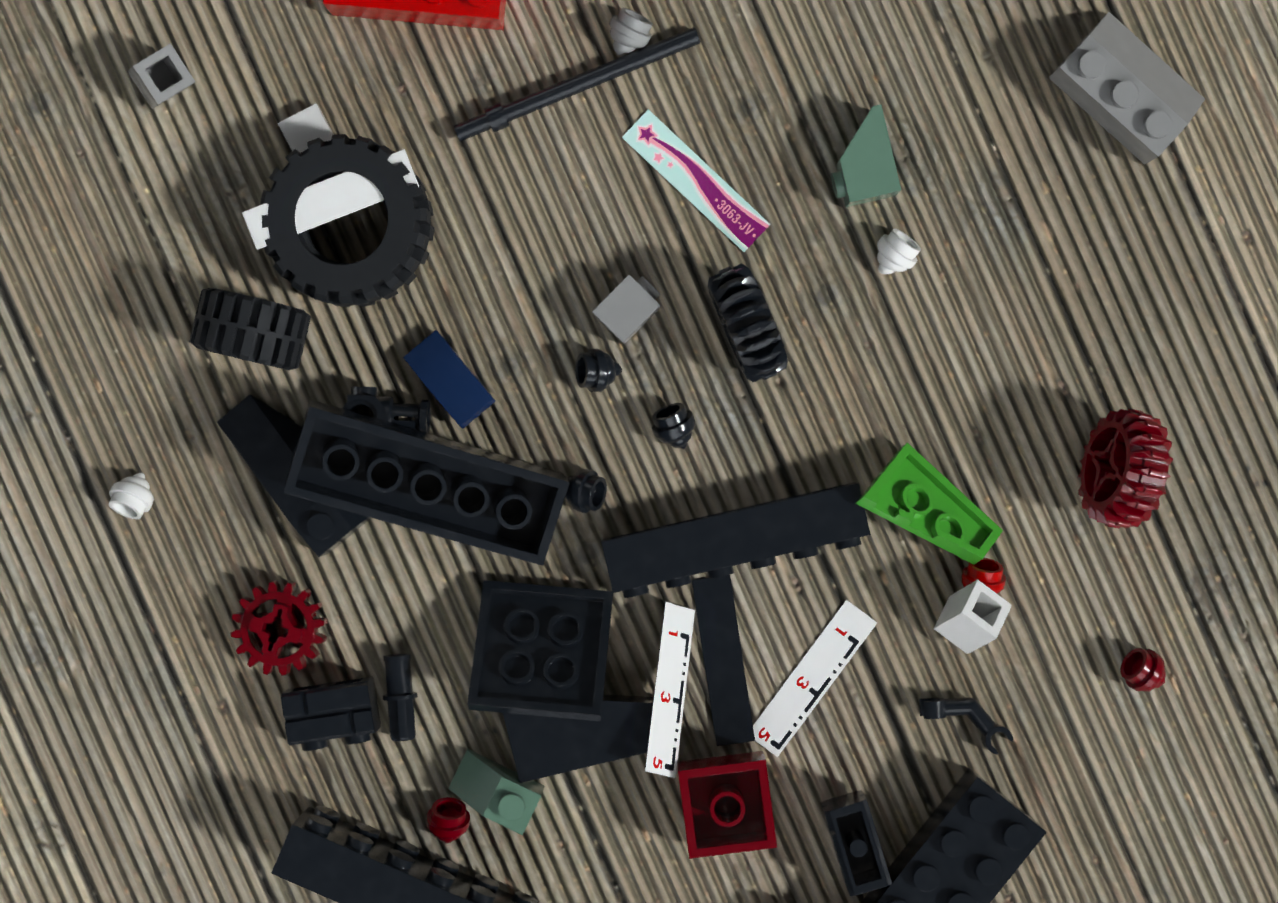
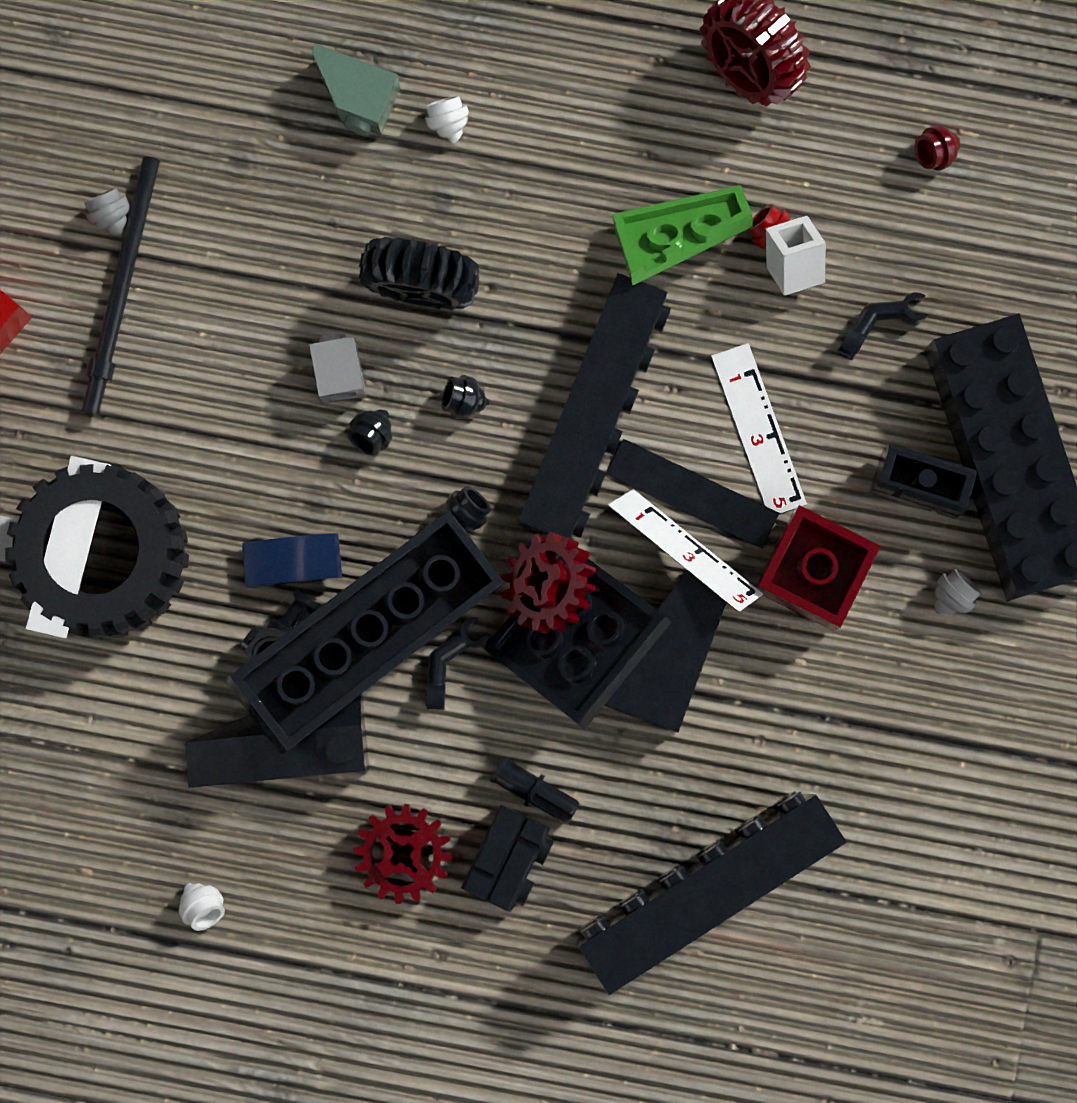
camera: 55 degrees left, 5 degrees down
(250, 328) = (128, 694): black tyre -> none
(446, 552) = (438, 661): none -> black arm
(448, 819) = (669, 821): dark red plate -> none
(496, 791) = (672, 762): sand green slope -> none
(562, 618) = (548, 583): none -> dark red gear
(696, 180) = (271, 242): sticker -> none

